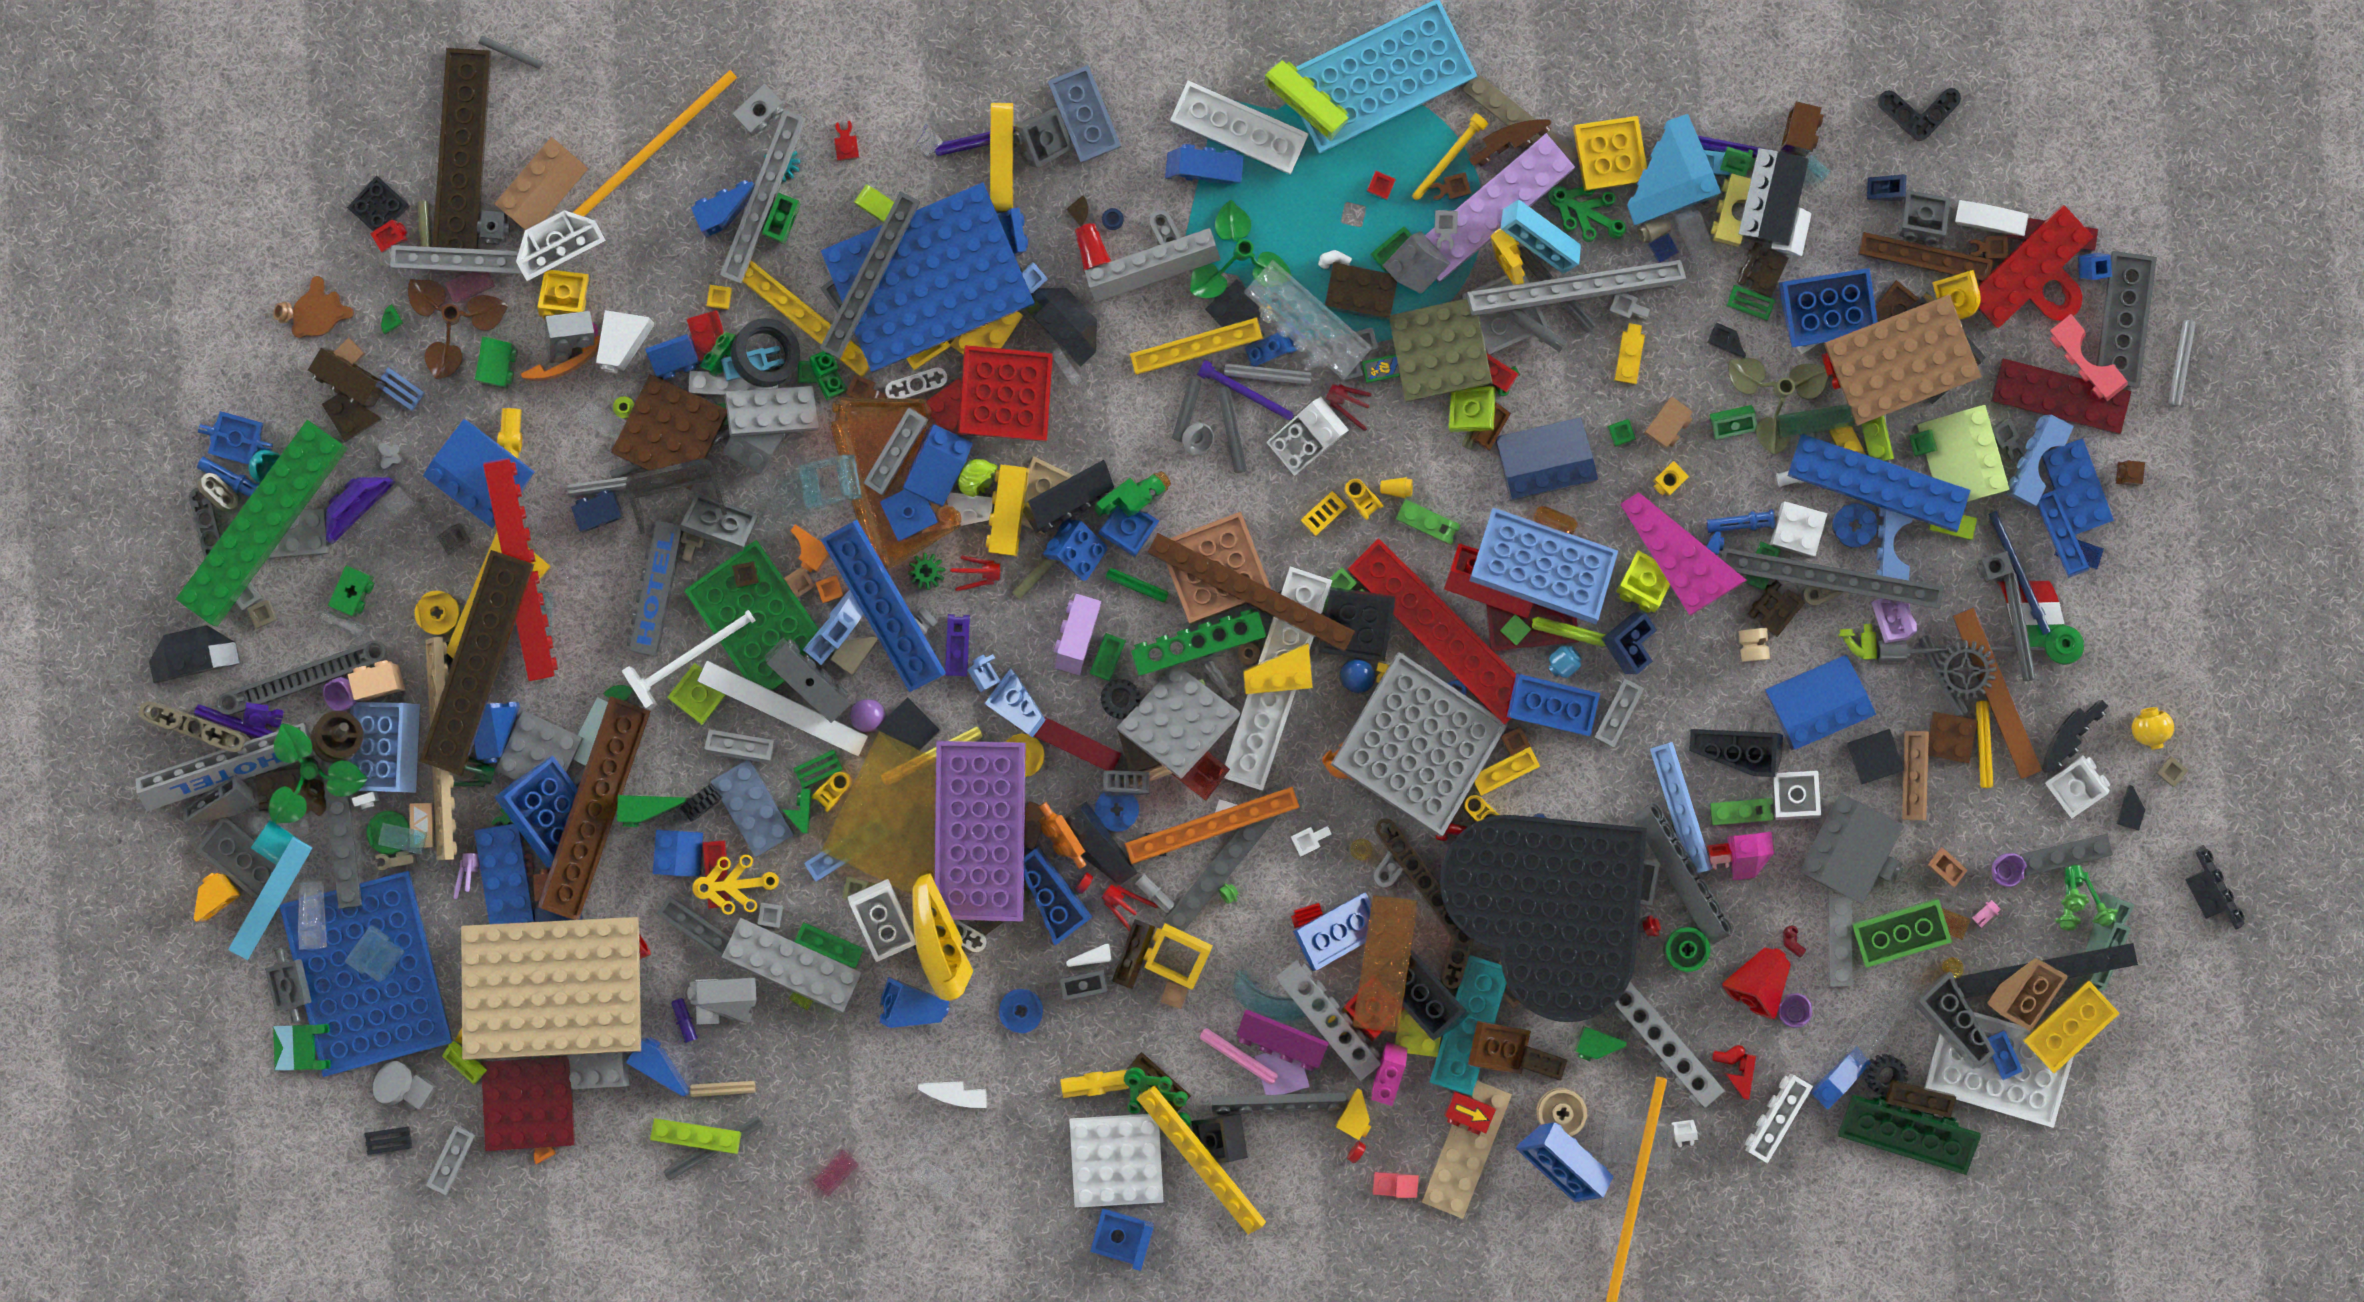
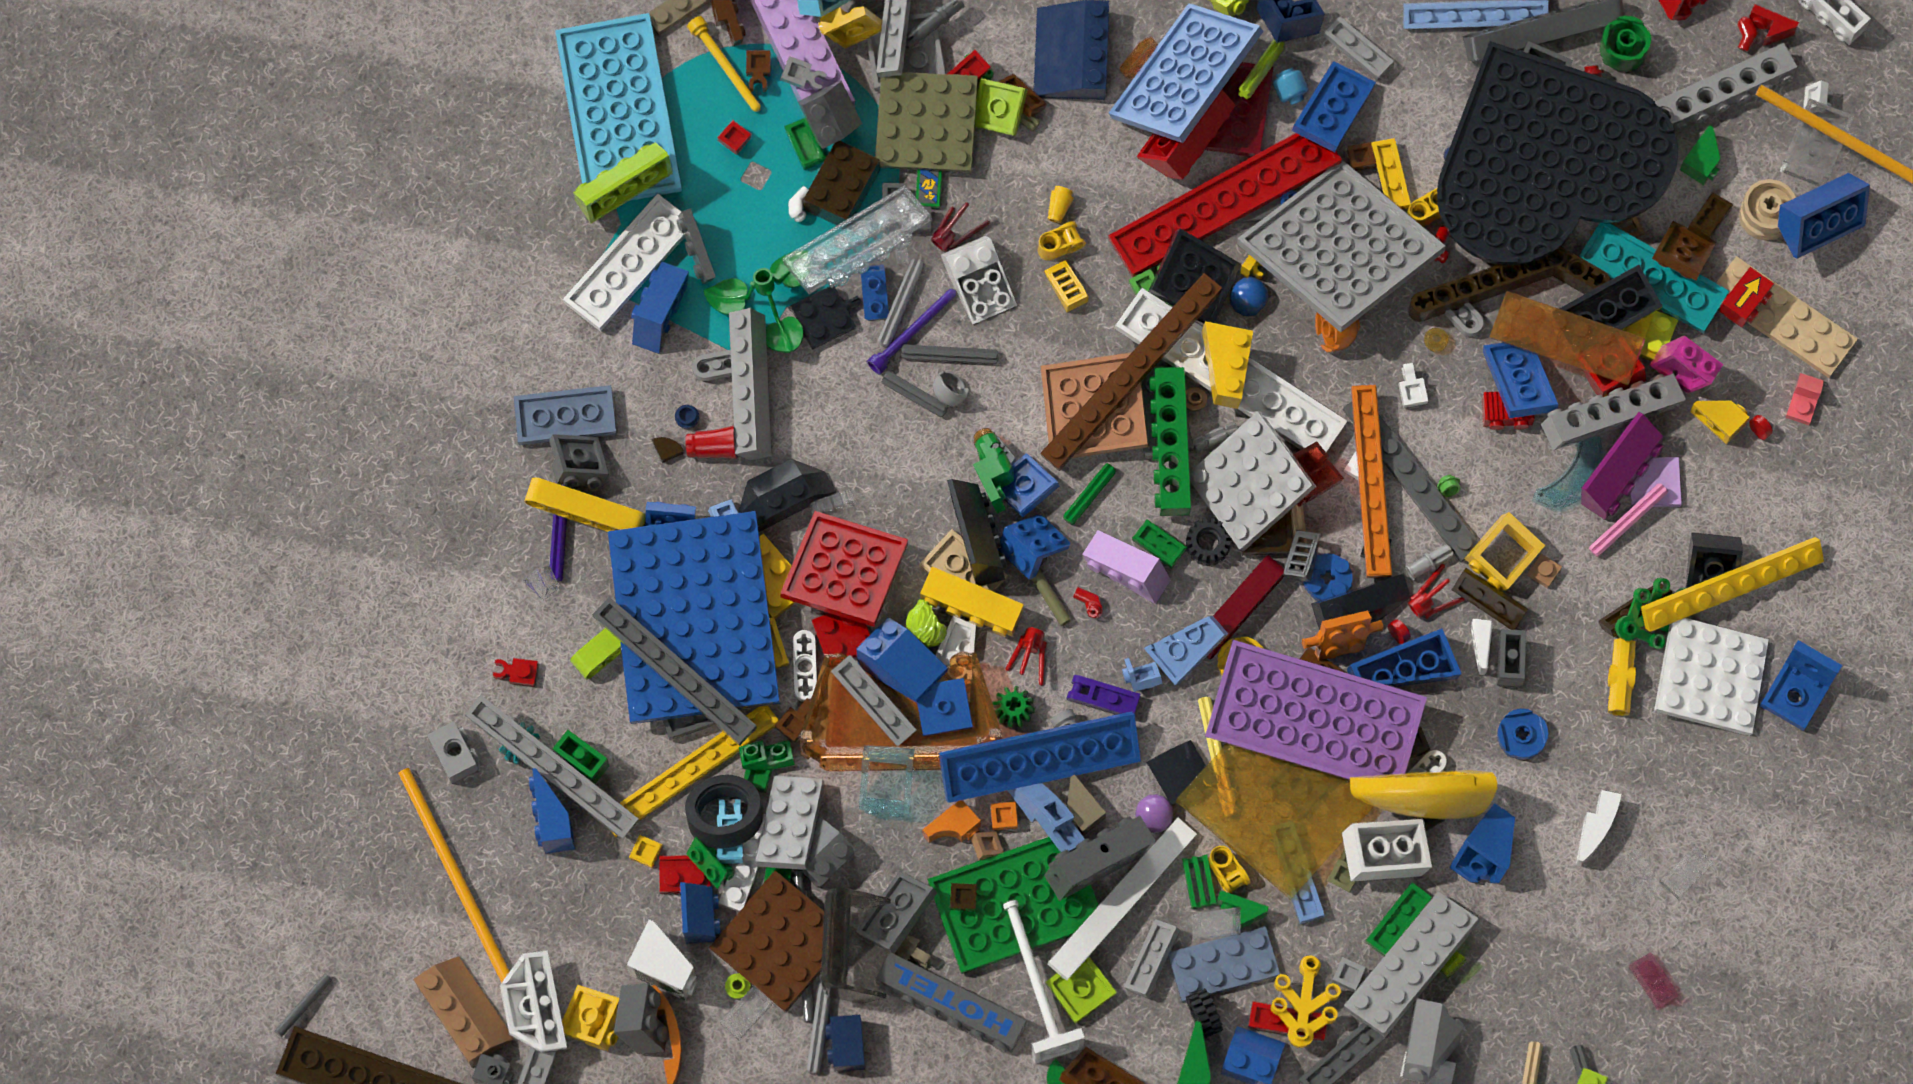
camera: 75 degrees left, 15 degrees down
(781, 793) = (1216, 924): none -> clear tile
(1040, 613) = (1091, 600): none -> red arm
(1196, 346) = (850, 365): yellow tile -> none
(1265, 181) = (695, 246): none -> dark grey plate
(1284, 1102) = (1687, 497): dark grey plate -> none
(1427, 521) = (1104, 185): bright green plate -> none
(1515, 629) = (1244, 123): bright green tile -> none

